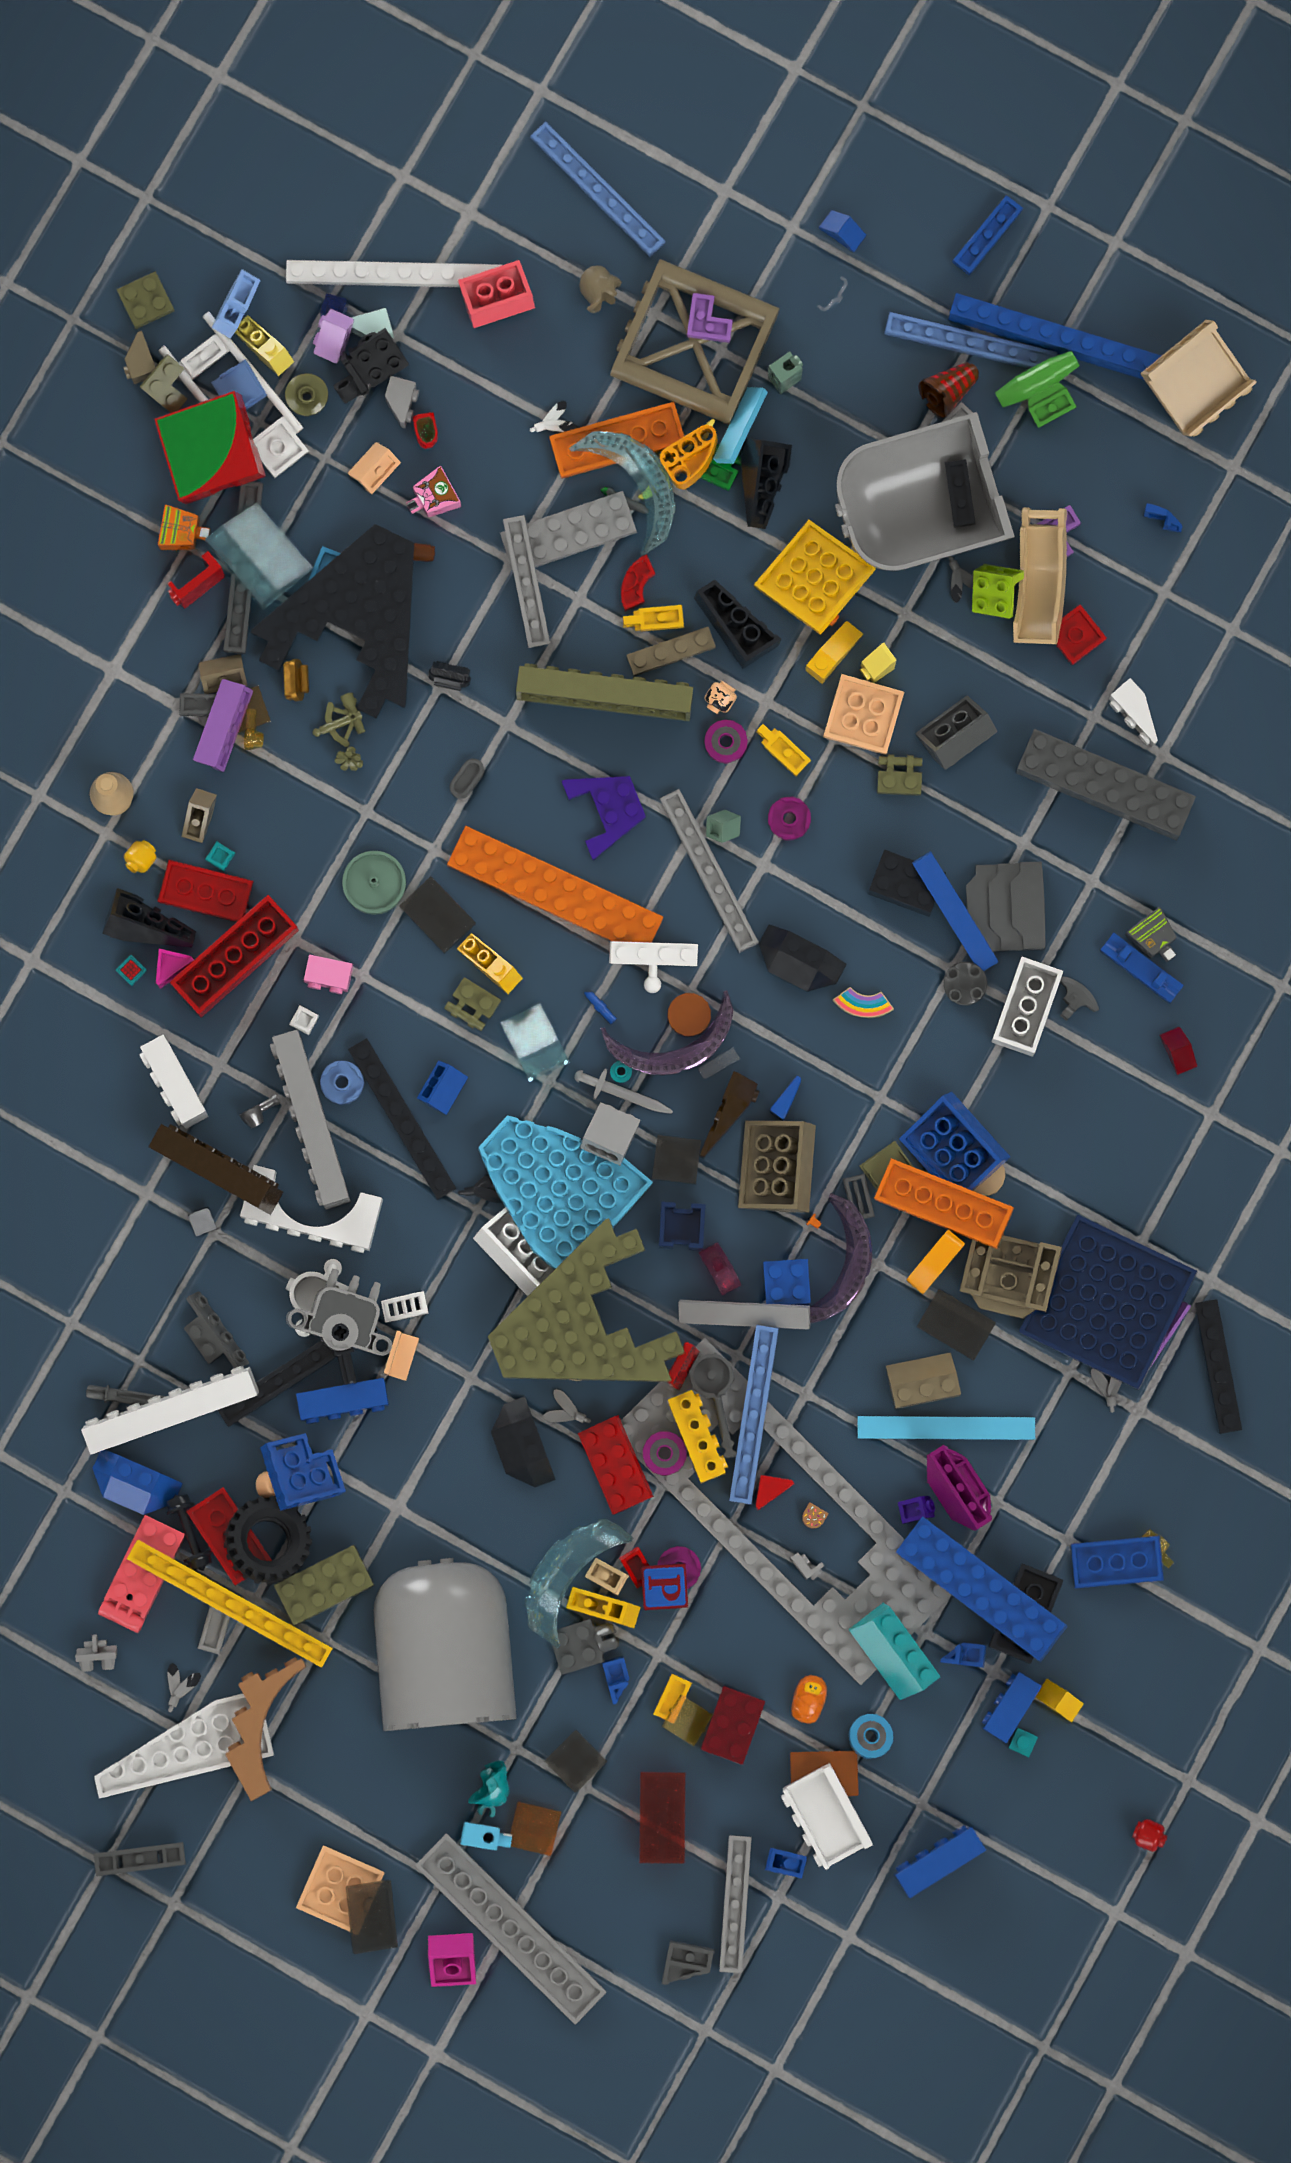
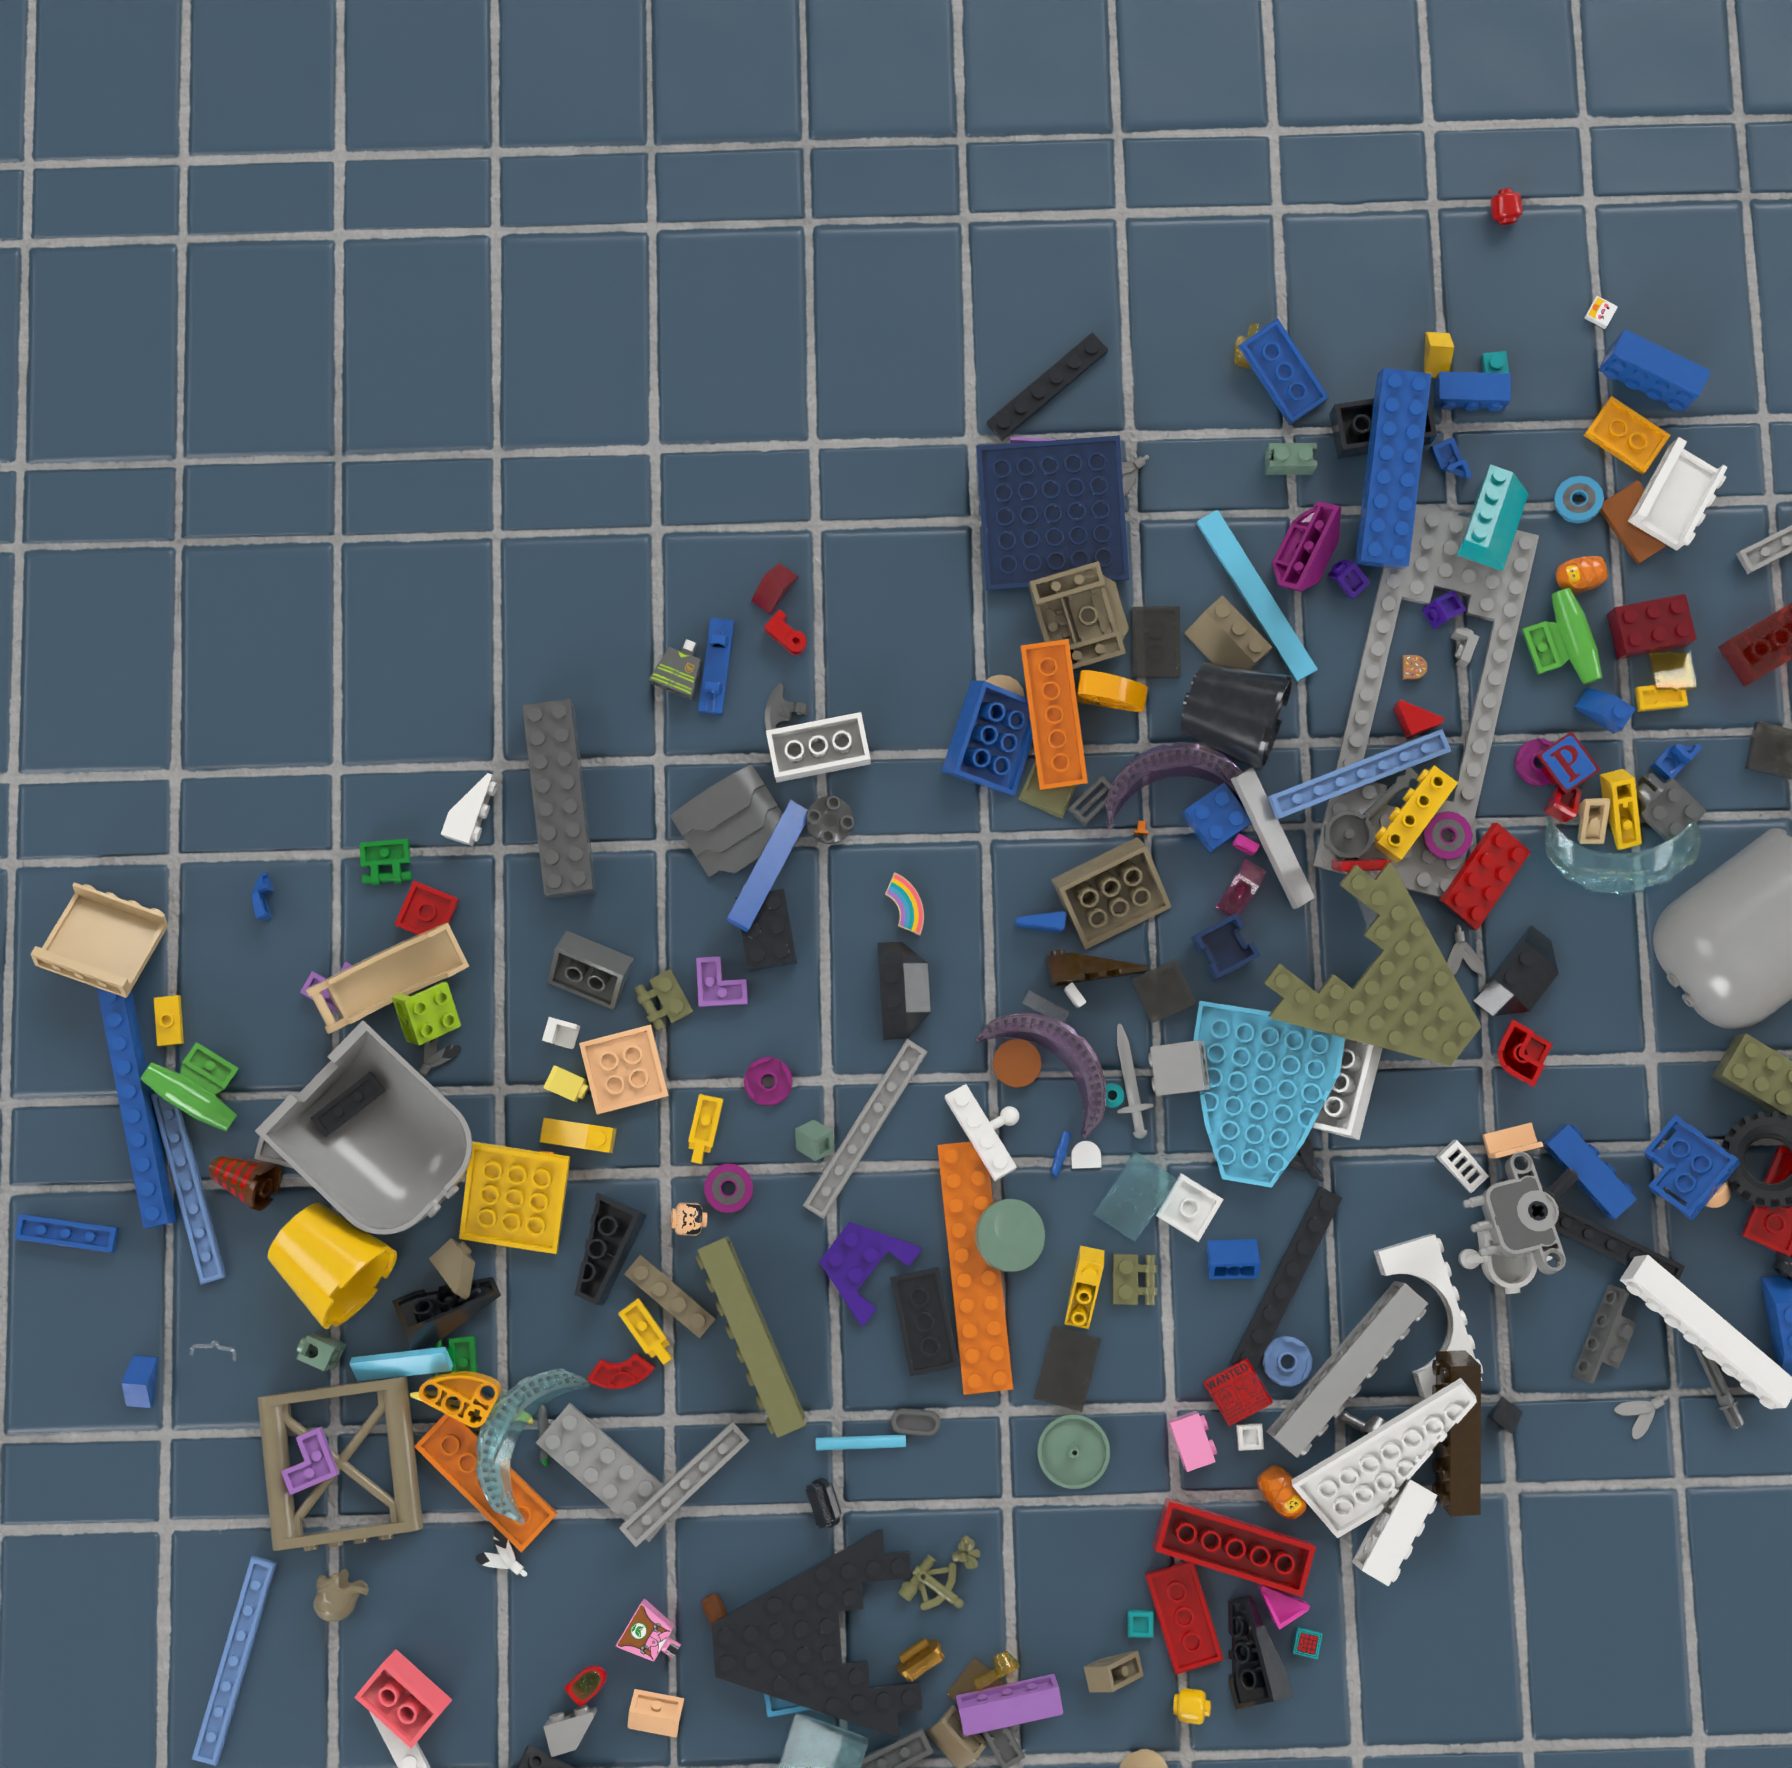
camera: 120 degrees left, 0 degrees up
(141, 1330) = (1644, 1410): none -> light grey piece
(227, 1083) = (1365, 1474): none -> white wing
(249, 1019) = (1279, 1493): none -> orange piece
(342, 1030) = (1238, 1392): none -> red tile
(463, 1403) = (1522, 1053): none -> red brick
(477, 729) = (860, 1442): none -> medium azure piece
(500, 1079) = (1189, 1207): none -> white tile
(537, 828) = (924, 1321): none -> black plate
(562, 929) = (1009, 1235): none -> sand green piece
(587, 1025) = (1086, 1155): none -> white piece
(690, 1645) = (1605, 709): none -> blue slope
(714, 1089) = (1074, 995): none -> white tile
(752, 1293) = (1245, 844): none -> dark pink tile
(763, 1649) = (1567, 639): none -> bright green plate
(786, 1863) = (1742, 507): blue slope -> none
(789, 504) = (455, 1266): none -> dark tan slope
(846, 414) = (330, 1263): none -> yellow cone
(846, 1570) = (1443, 609): none -> dark purple bracket
(859, 1344) = (1236, 710): none -> black cone
(885, 817) = (713, 990): none -> medium lavender plate
(900, 1813) = (1627, 435): none -> light orange tile
(920, 683) = (561, 1033): none -> white panel
(1015, 1858) = (1600, 312): none -> white tile
(1041, 1523) = (1290, 459): none -> sand green brick
(1107, 396) = (168, 1020): none -> yellow plate
(1138, 1033) = (791, 640): none -> red leg
(1141, 629) = (385, 853): none -> green plate

